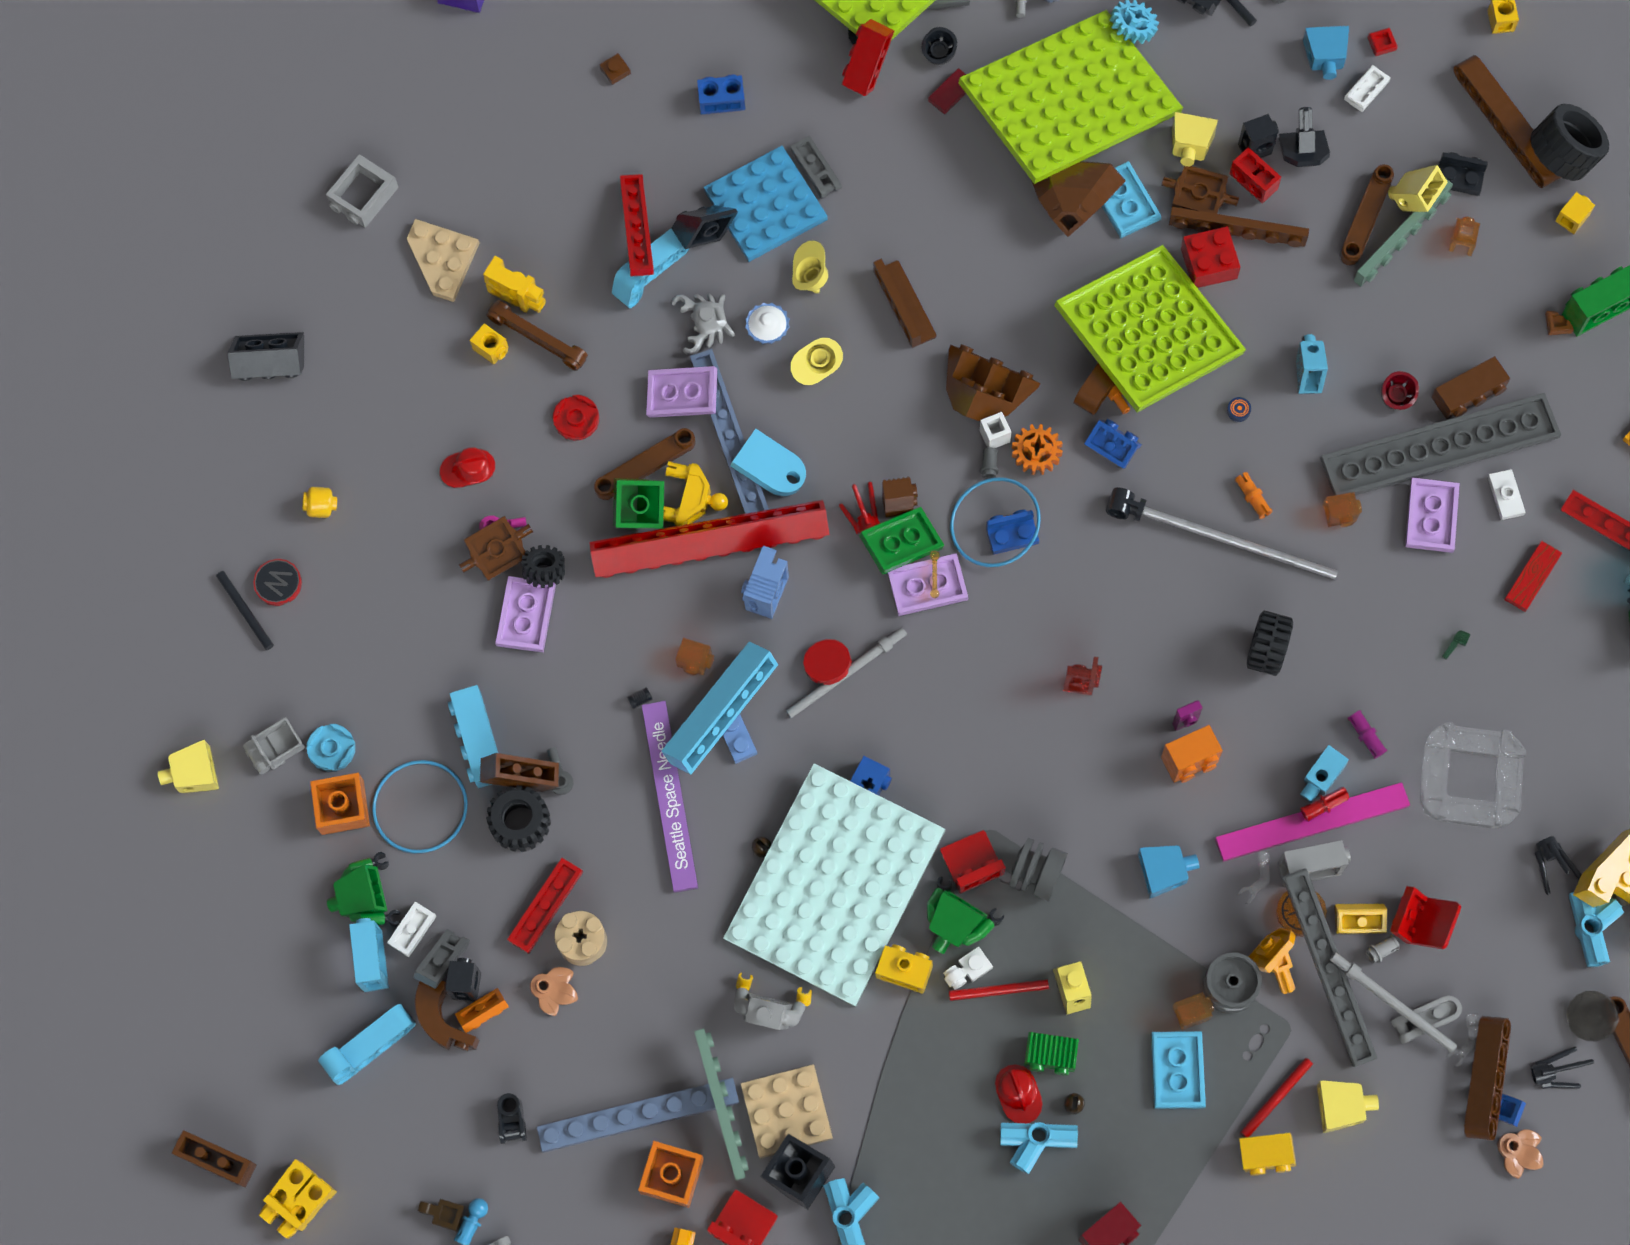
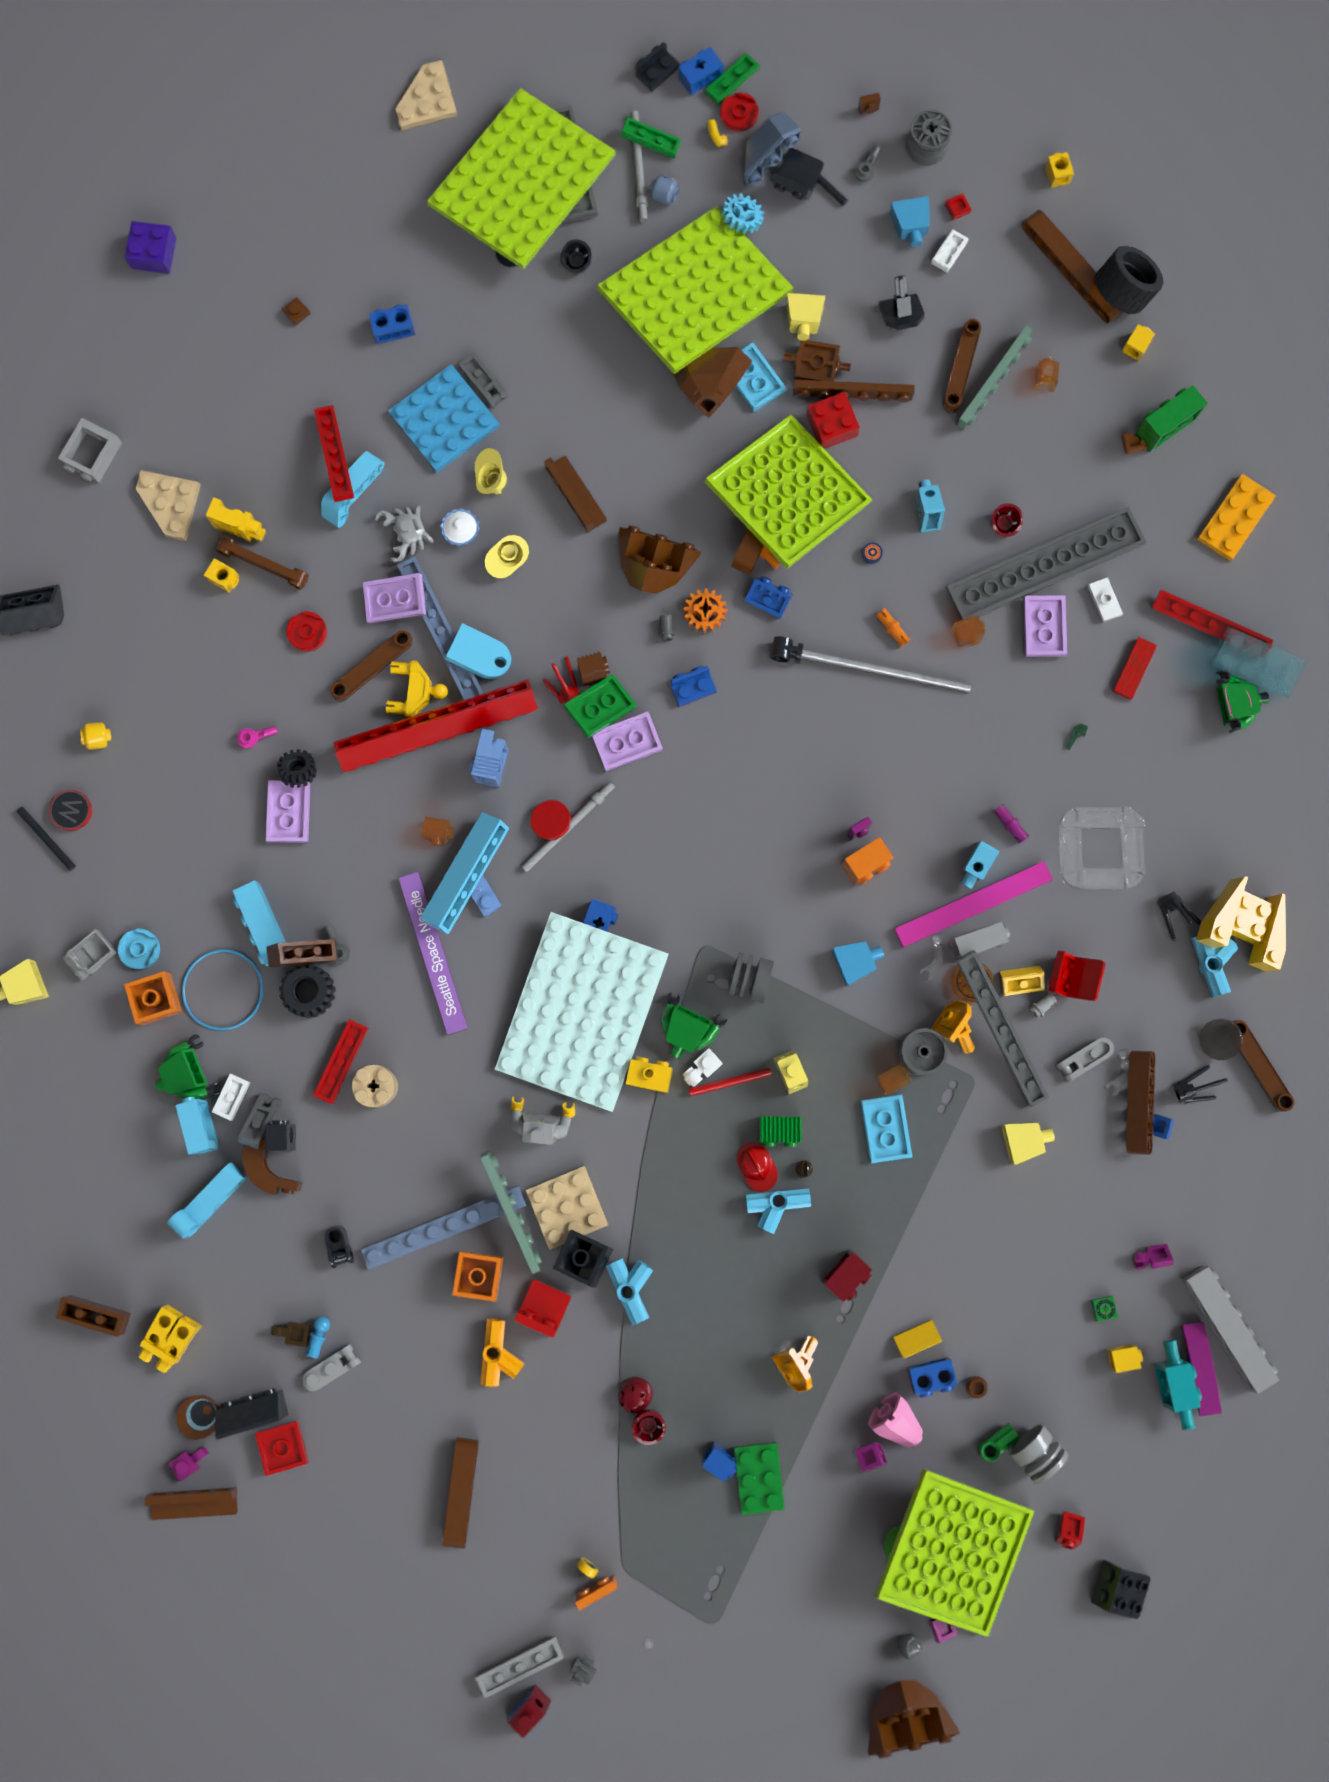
camera: 10 degrees left, 10 degrees up
(467, 467) = (219, 688): red piece -> none
(481, 1010) = (300, 1158): orange plate -> none
(495, 548) = (253, 757): reddish brown plate -> none
(557, 992) = (362, 1132): nougat plate -> none
(632, 701) = (395, 868): black piece -> none
(638, 503) = (370, 703): green slope -> none
(703, 225) = (392, 446): black slope -> none
(757, 850) = (513, 990): dark brown hinge -> none
(867, 57) = (514, 275): red brick -> none
(934, 556) = (630, 716): clear yellow hinge -> none
(948, 93) = (589, 298): dark red tile -> none
(972, 861) = (694, 976): red bracket -> none
(995, 430) = (667, 599): white brick -> none
(1016, 557) = (644, 665): dark azure piece -> none
(1081, 679) = (768, 809): clear red bracket -> none
(1255, 175) = (863, 342): red brick -> none
(1259, 135) = (861, 308): black brick -> none
(1267, 1153) = (968, 1190): yellow brick -> none
(1269, 643) = (922, 757): black tyre -> none
(1276, 1098) = (969, 1141): red bar -> none
(1324, 803) = (982, 889): red axle -> none
(1354, 973) = (1024, 1032): light grey bar -> none
(1418, 189) = (1004, 338): light yellow torso -> none
(1463, 172) = (1039, 317): black bracket -> none
(1471, 388) = (1066, 510): reddish brown brick -> none
(1523, 1154) = (1175, 1161): nougat plate -> none

